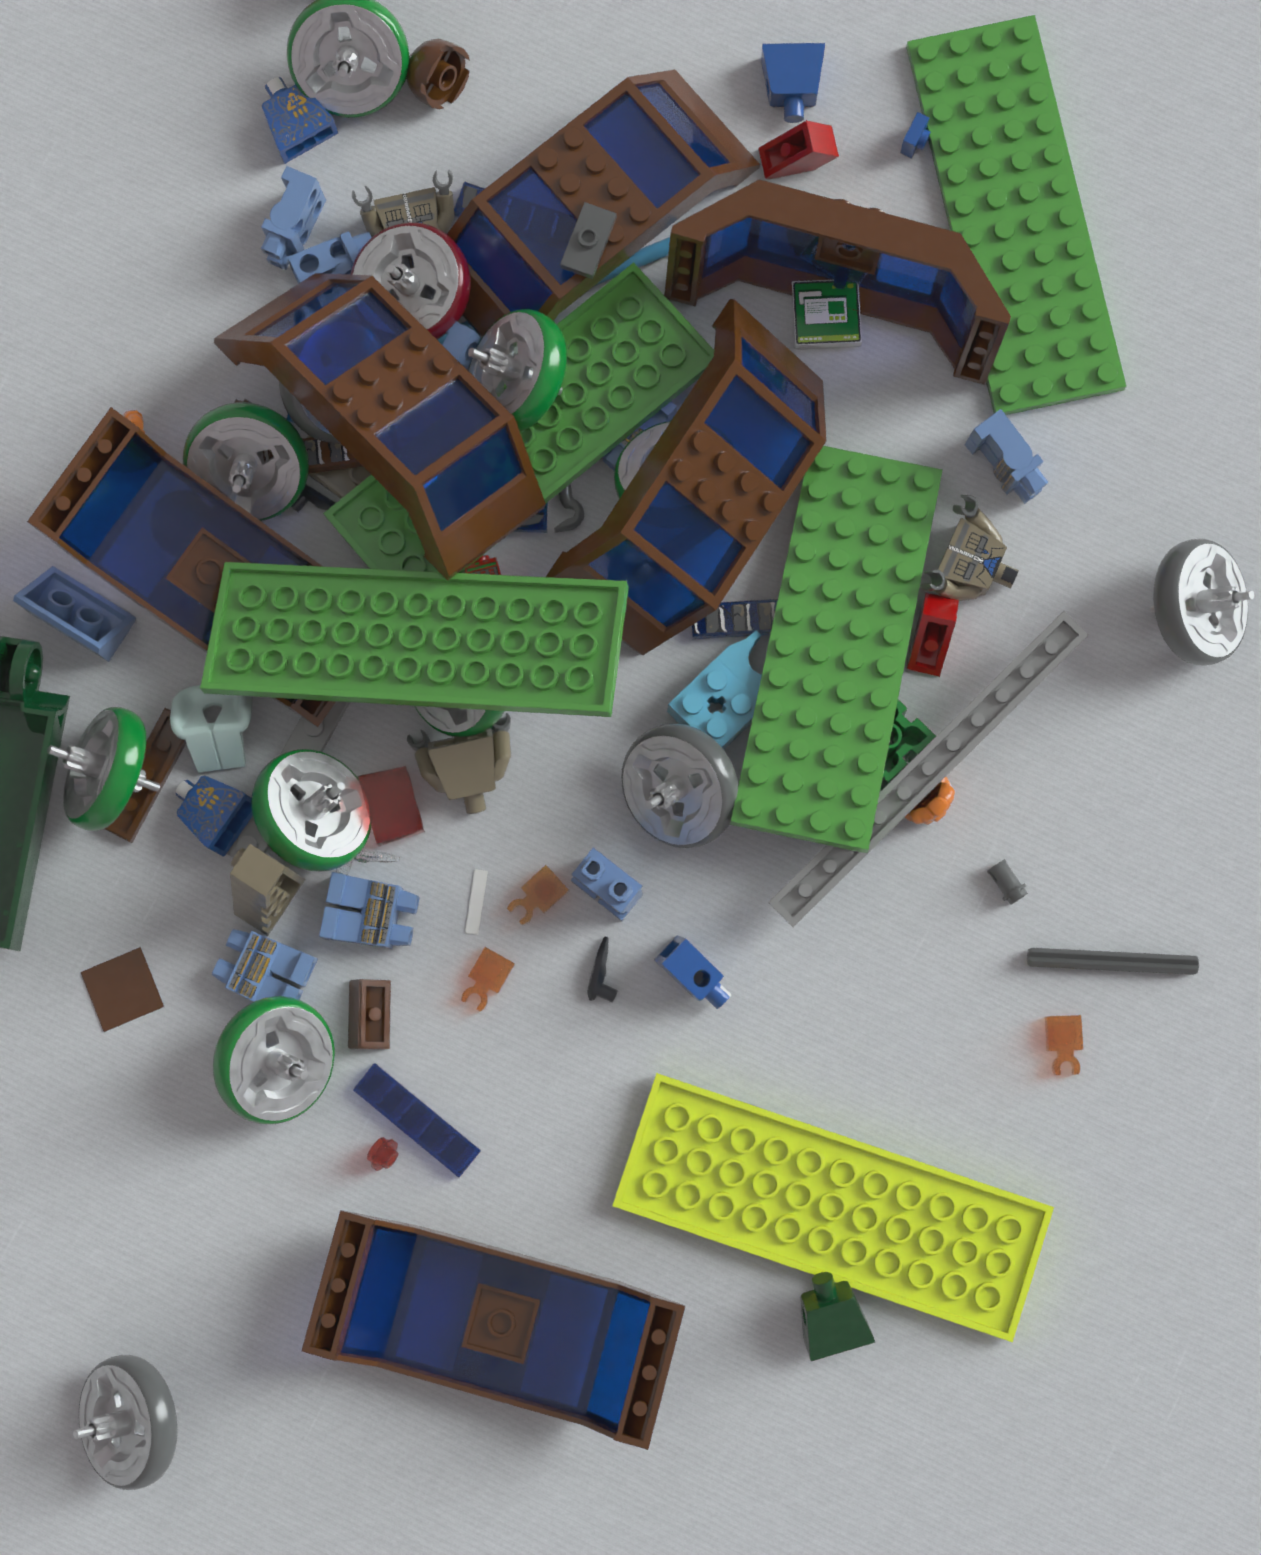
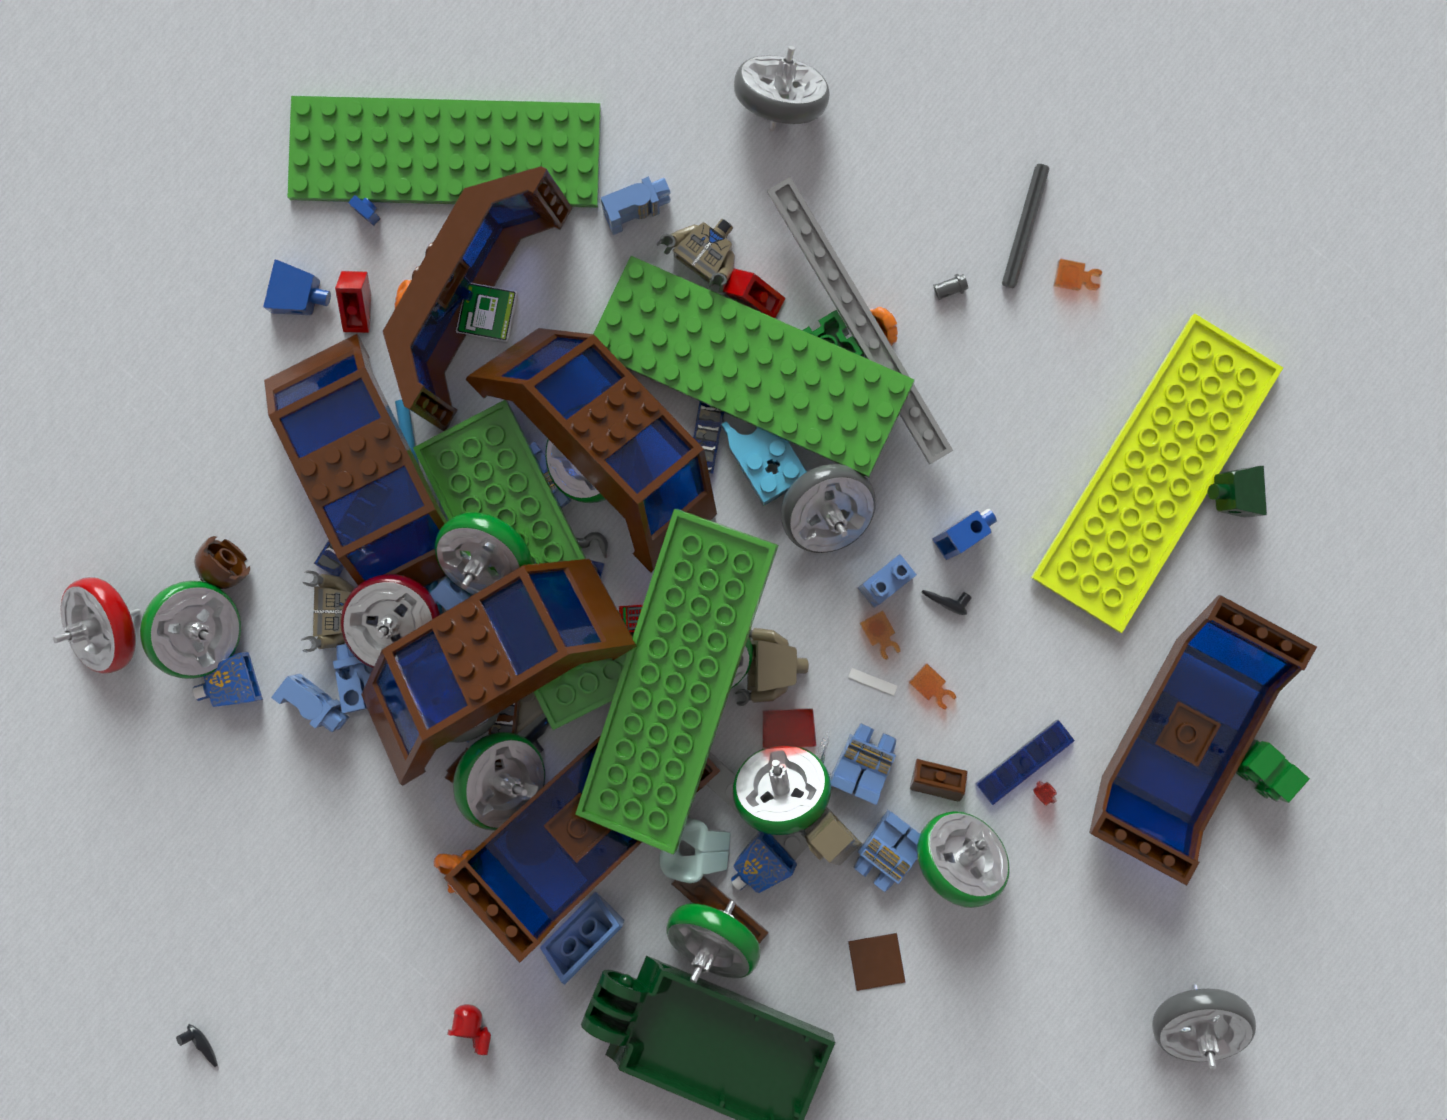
camera: 85 degrees left, 5 degrees up
(478, 1436) = (1271, 772): none -> green brick
(588, 240) = (395, 475): dark grey plate -> none

